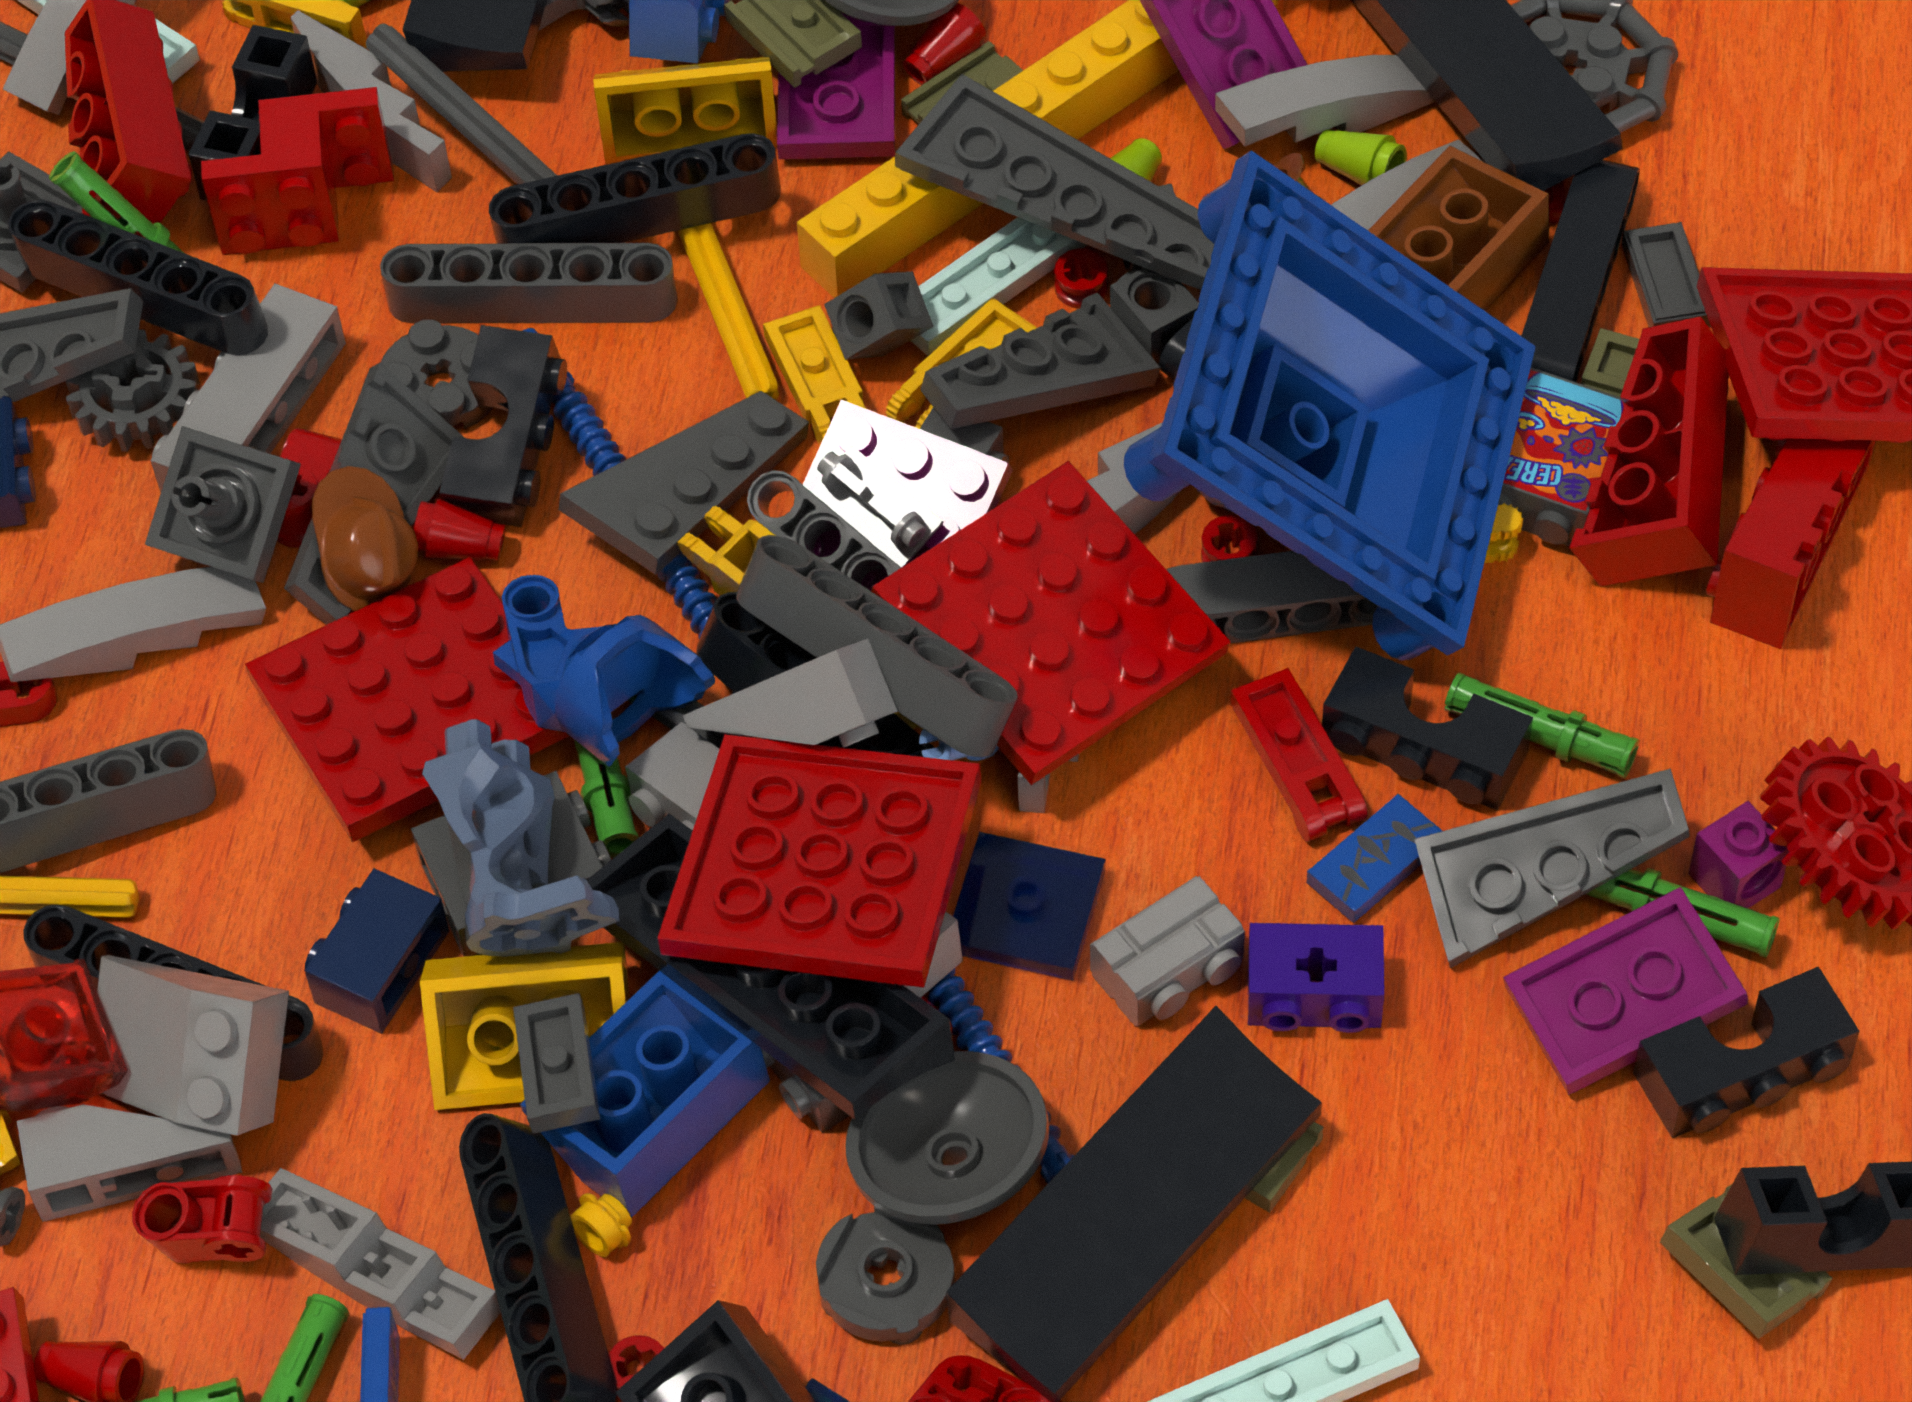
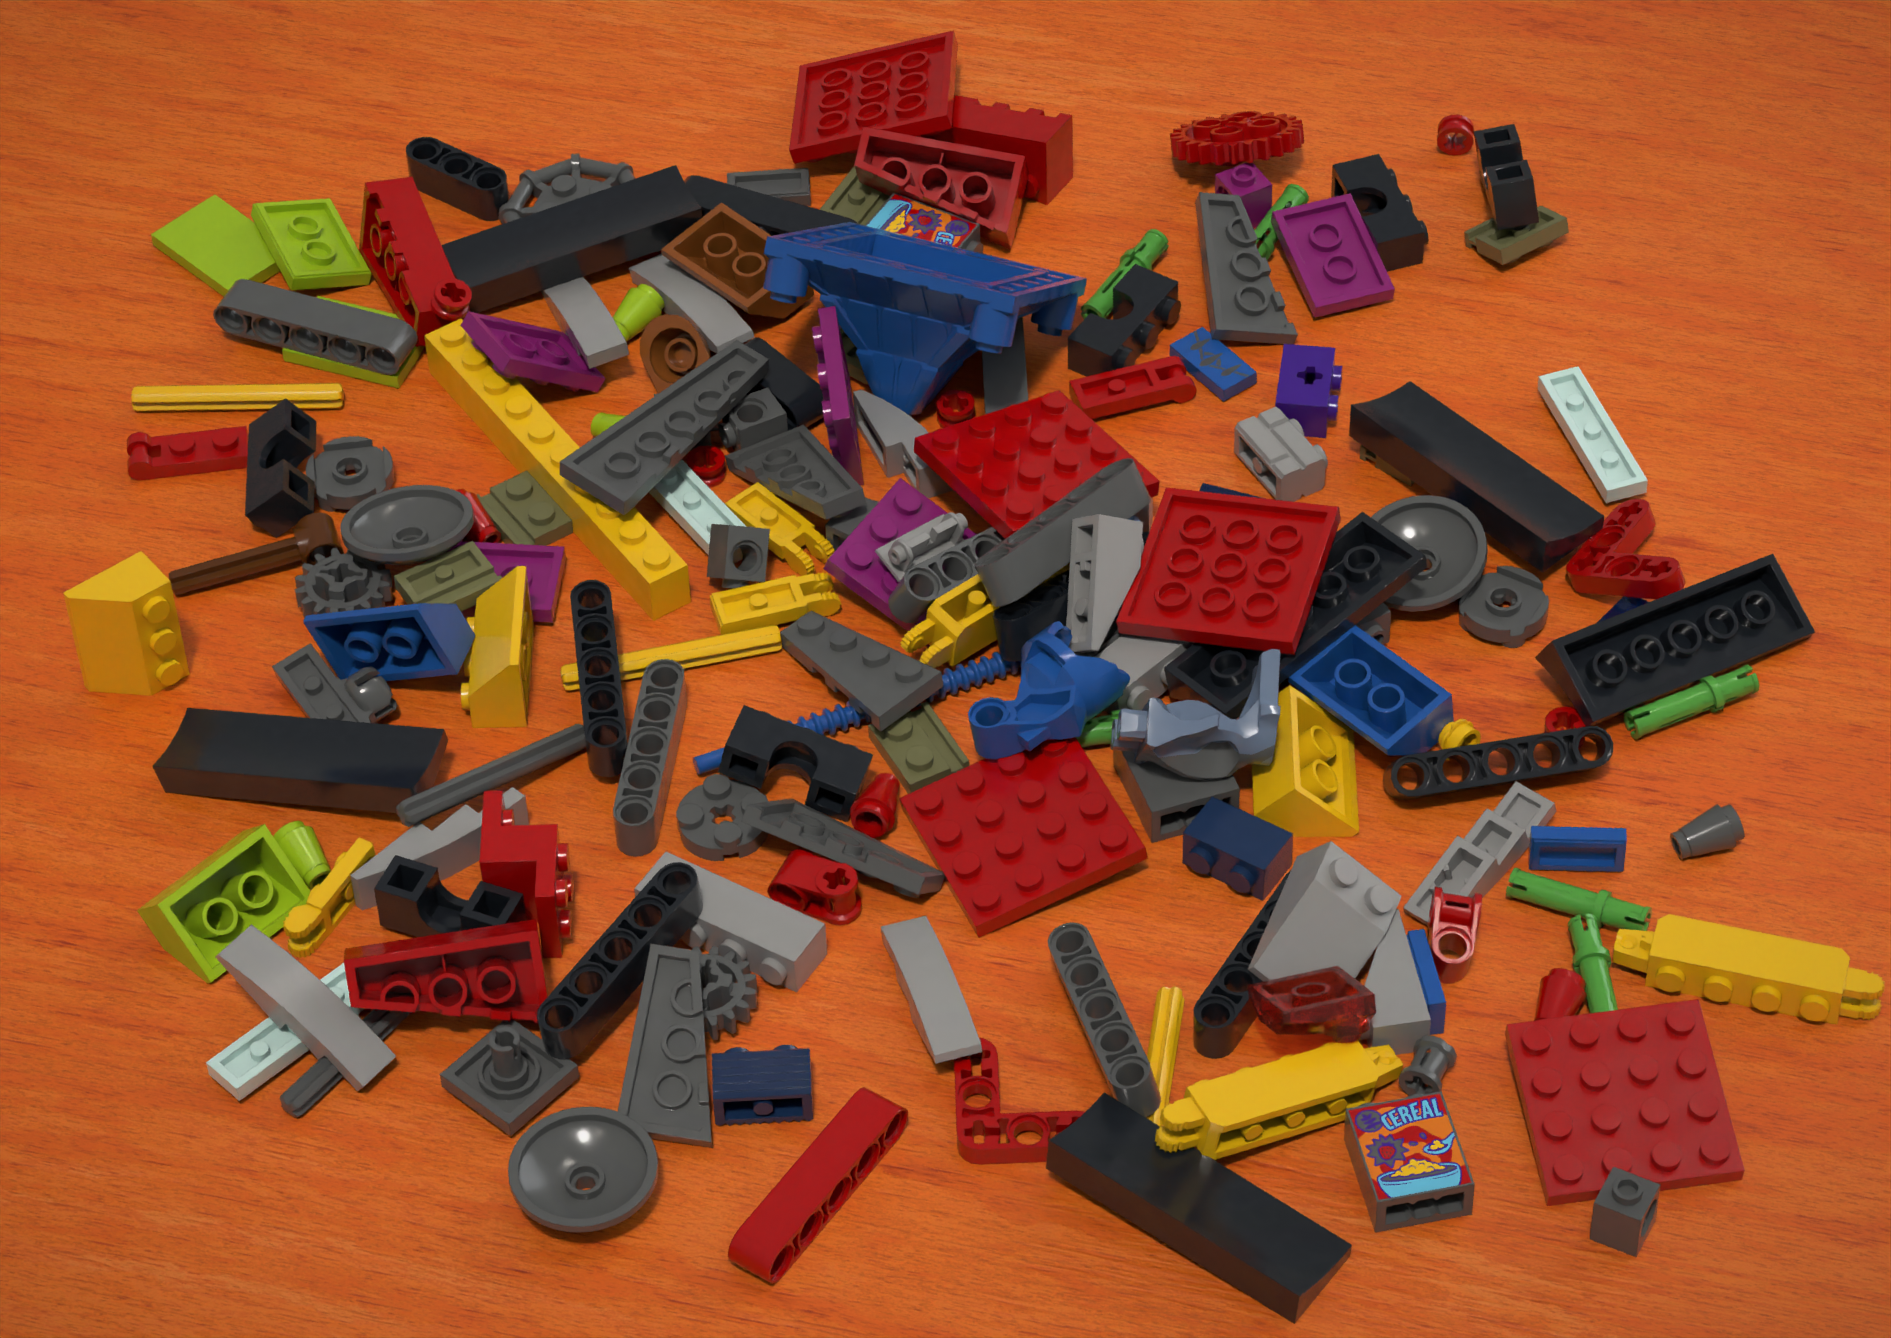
camera: 85 degrees left, 10 degrees down
(78, 179) = (555, 961): bright green pin -> none
(109, 1199) = (1428, 979): none -> blue tile
(222, 504) = (852, 909): dark grey plate -> none
(362, 537) = (893, 832): dark orange piece -> none
(556, 1063) = (1368, 716): dark grey plate -> none
(582, 567) = (918, 748): none -> olive plate
(1116, 361) = (837, 393): none -> magenta plate

